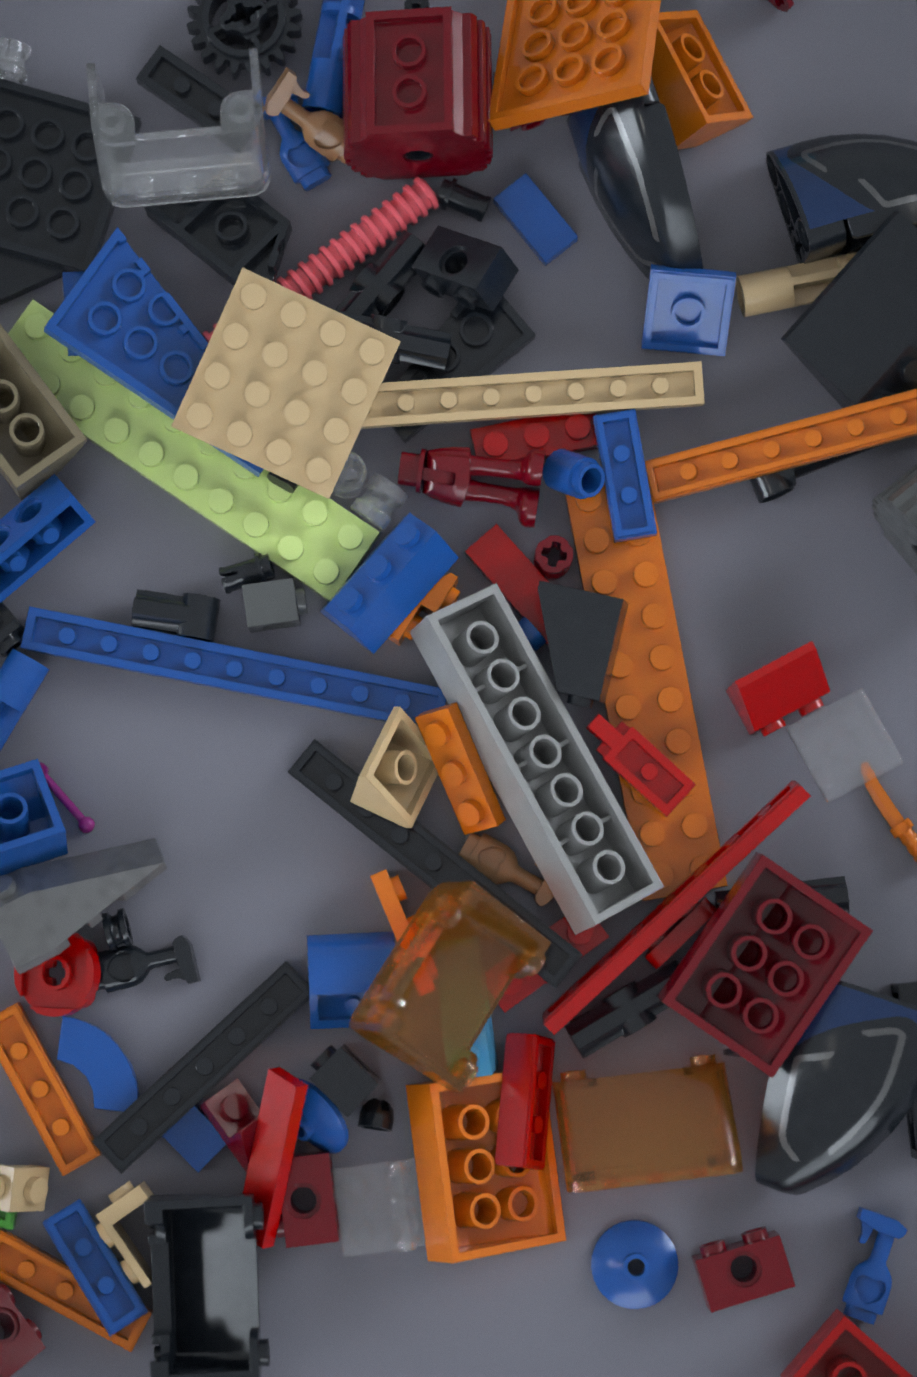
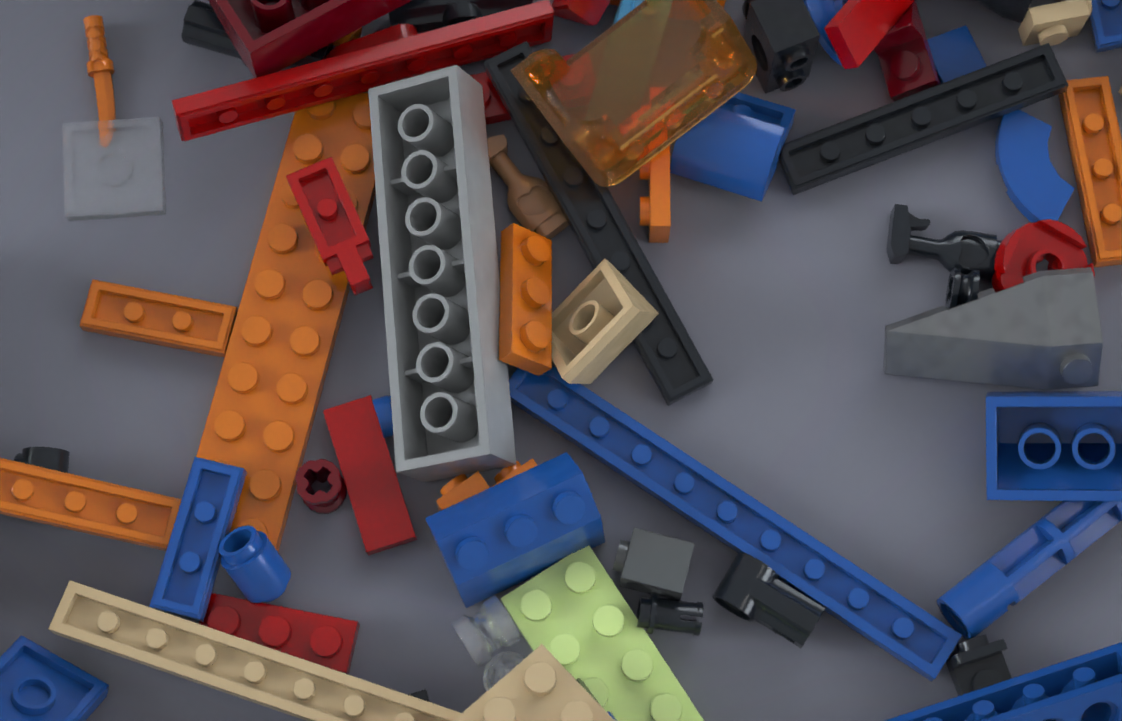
camera: 155 degrees left, 10 degrees down
(85, 824) = (956, 417): magenta hinge -> none
(448, 472) = (395, 624): dark red piece -> none
(582, 640) = (330, 375): black slope -> none
(745, 639) = (158, 318): none -> orange tile
(780, 689) = (150, 245): red slope -> none

